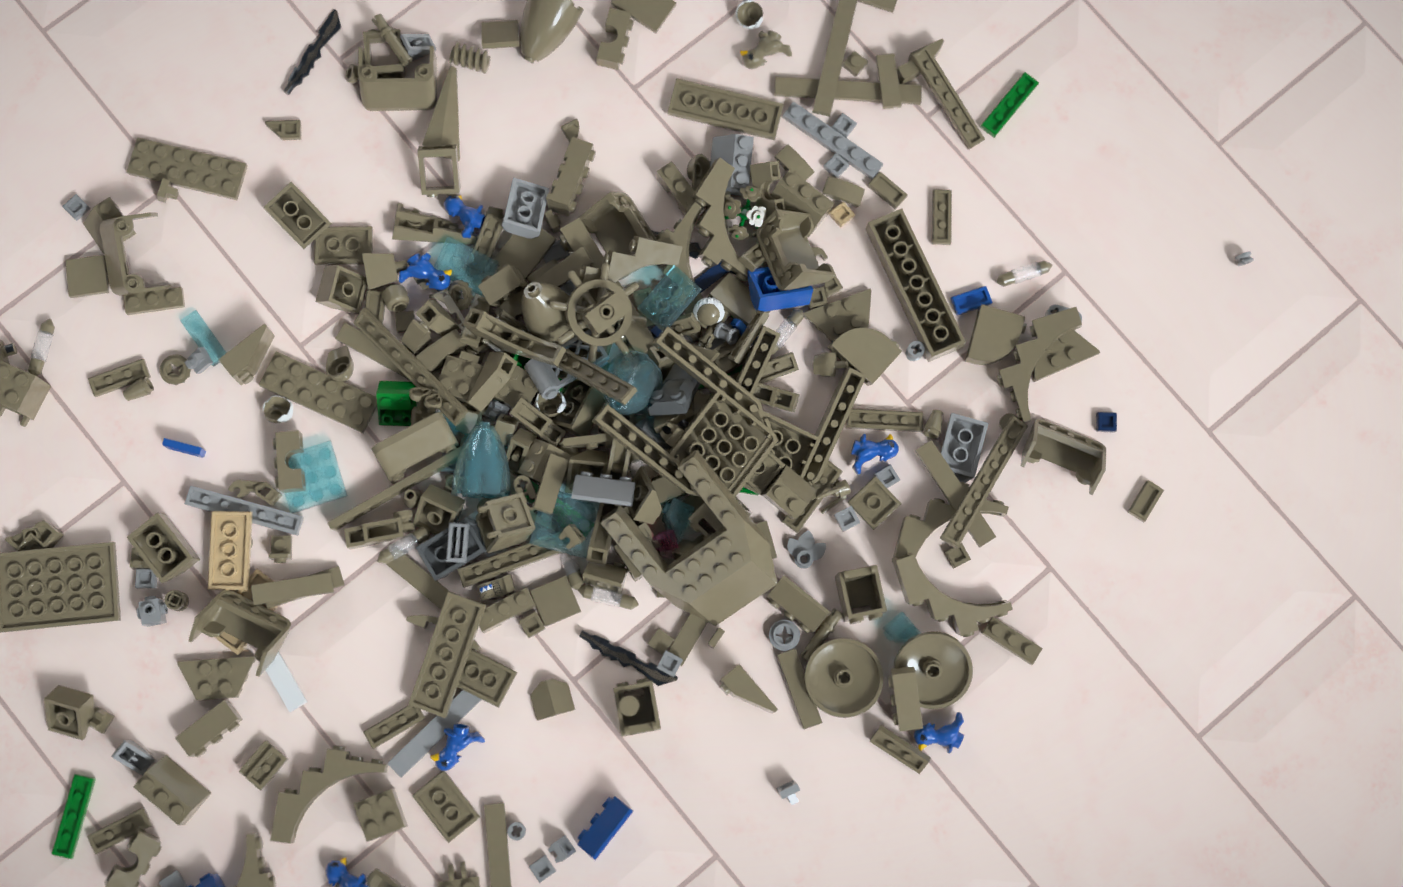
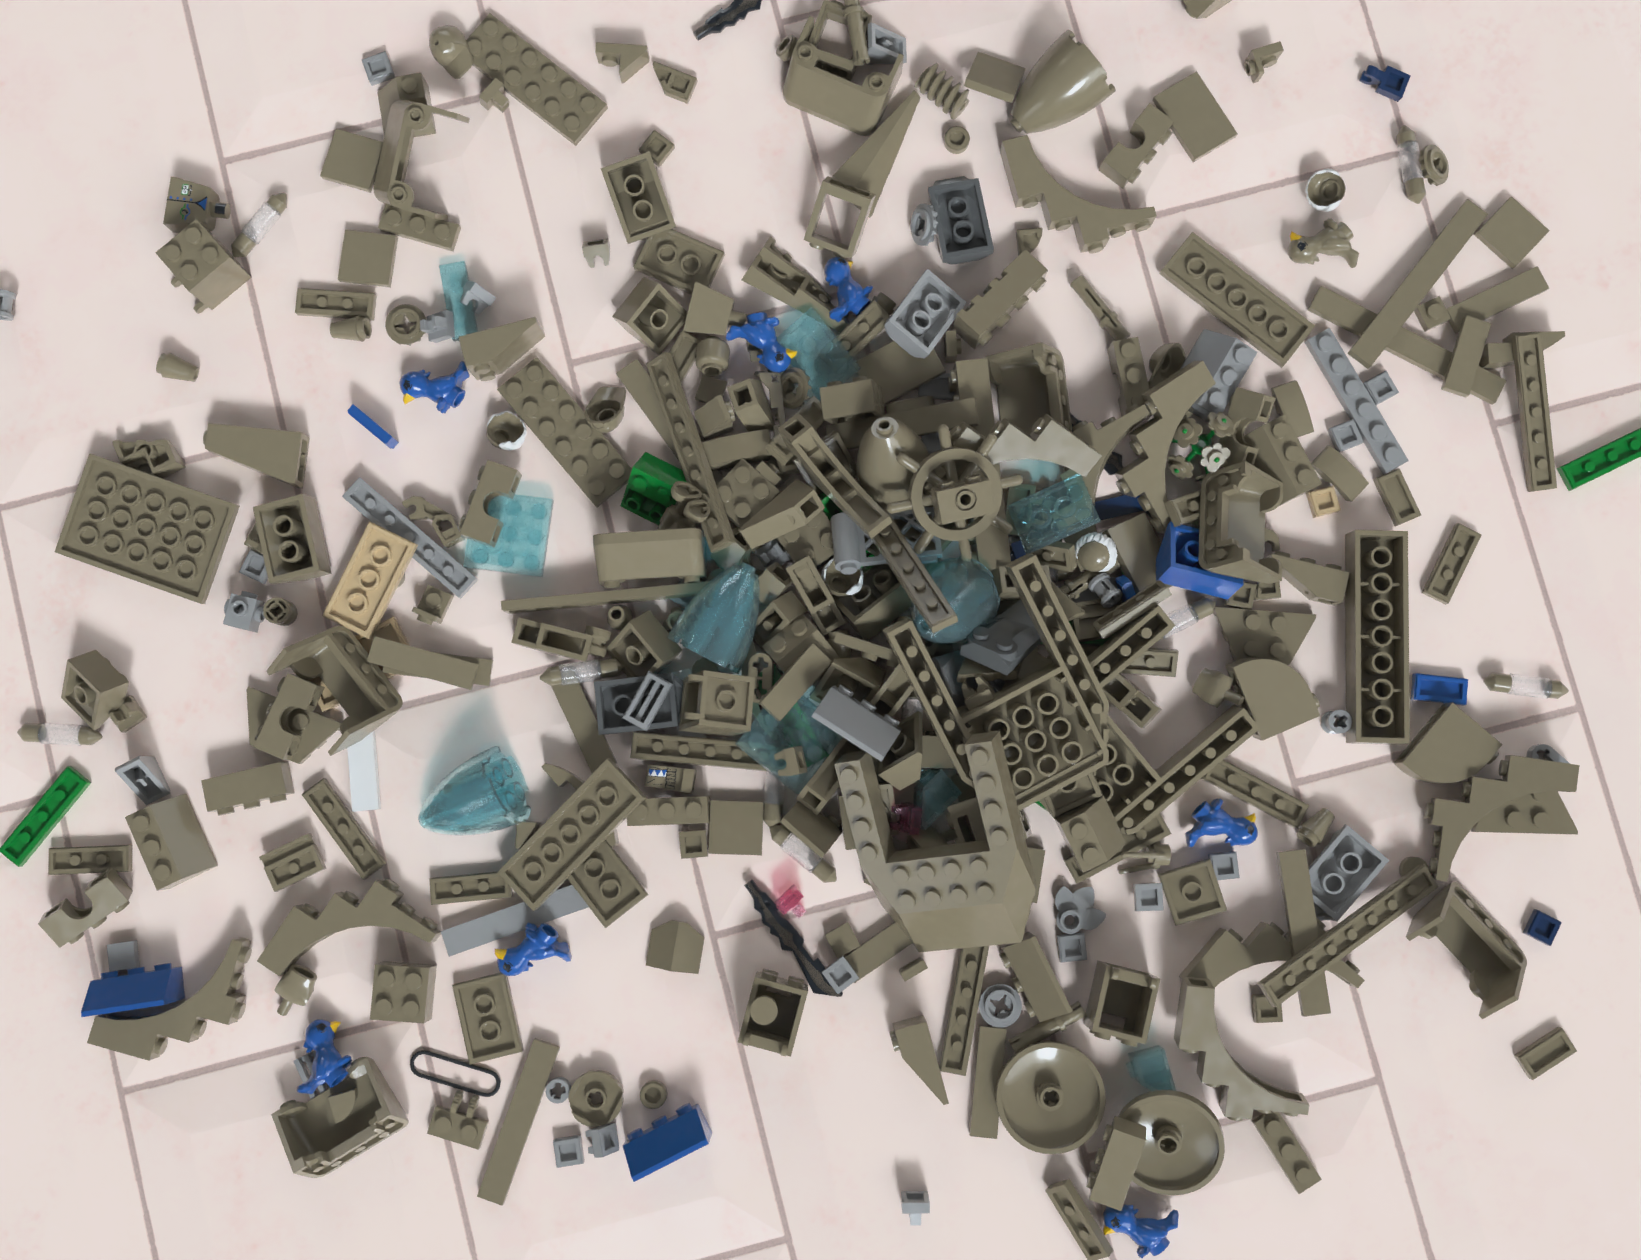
camera: 35 degrees right, 5 degrees up
(25, 470) = (176, 368): none -> dark tan cone
(58, 755) = (59, 734): none -> piece
(116, 497) = (267, 451): none -> dark tan slope
(123, 174) = (451, 50): none -> dark tan cap
(127, 337) = (367, 258): none -> dark tan tile
(214, 649) = (275, 735): none -> dark tan arch
(219, 327) = (479, 294): none -> light grey tile
(222, 401) = (442, 390): none -> blue animal
(247, 125) = (628, 56): none -> dark tan slope
(281, 263) = (594, 248): none -> tile
(288, 726) = (344, 829): none -> dark tan tile
(295, 176) = (658, 146): none -> dark tan tile
(304, 848) = (295, 987): none -> dark tan piece
(370, 661) = (469, 801): none -> clear light blue cylinder
(414, 669) = (524, 832): none -> dark tan slope
(439, 846) = (453, 1084): none -> black piece
(493, 85) = (956, 140): none -> dark tan tile
(497, 150) = (923, 224): none -> light grey gear
(520, 136) = (962, 220): none -> dark grey slope
(552, 832) = (610, 1091): none -> dark tan plate
(582, 803) = (653, 1094): none -> dark tan tile
(584, 100) = (1060, 207): none -> dark tan arch
(615, 632) = (790, 901): none -> clear pink tile
(639, 154) = (1101, 311): none -> dark tan pin
(761, 648) = (963, 1010): none -> dark tan tile
(813, 575) = (1071, 947): none -> light grey tile
(859, 267) = (1314, 581): none -> dark tan slope
(892, 35) = (1499, 297): none -> dark tan tile

